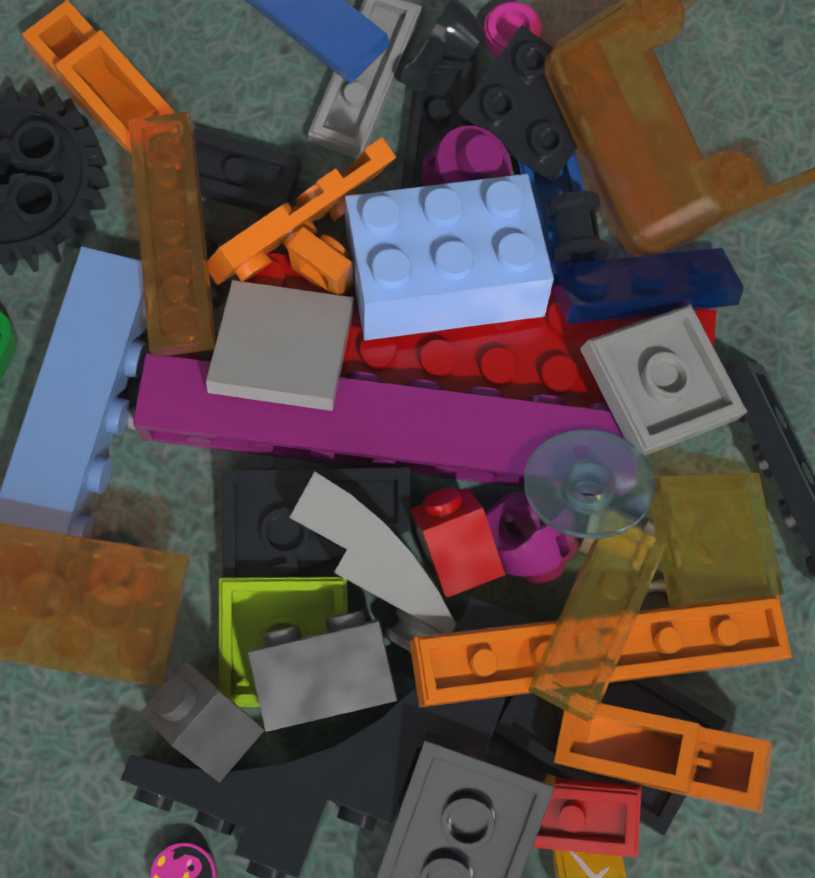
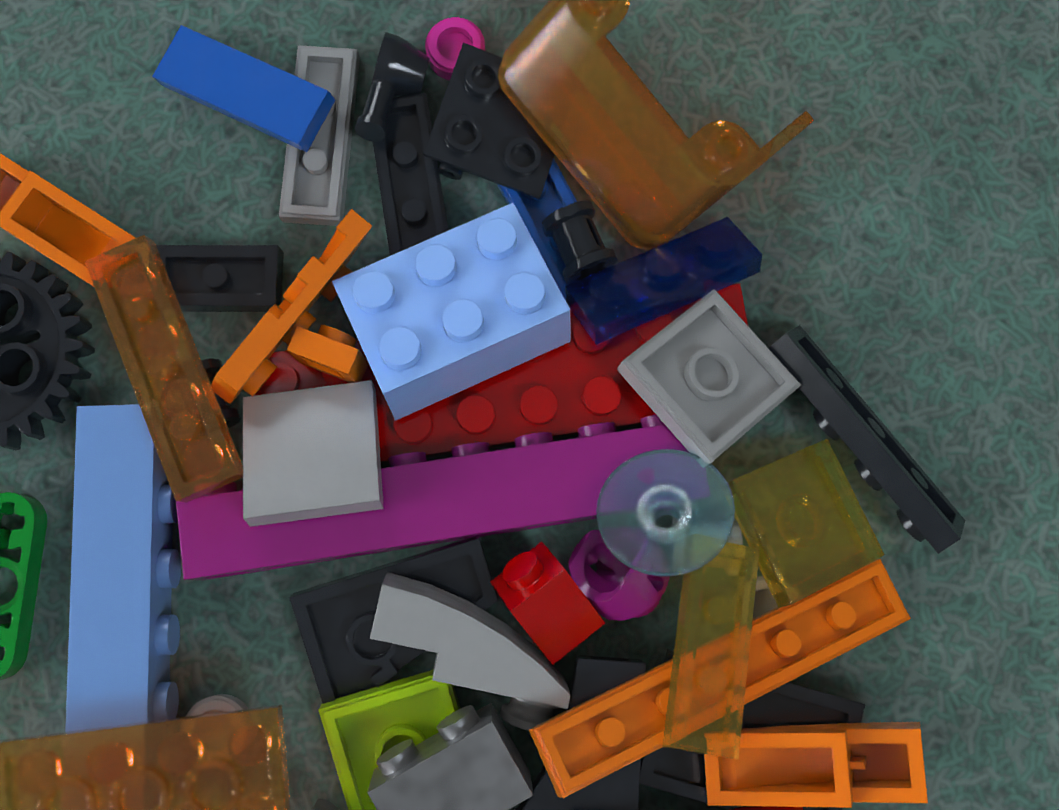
camera: 10 degrees left, 5 degrees up
(466, 156) = (446, 199): magenta piece -> none

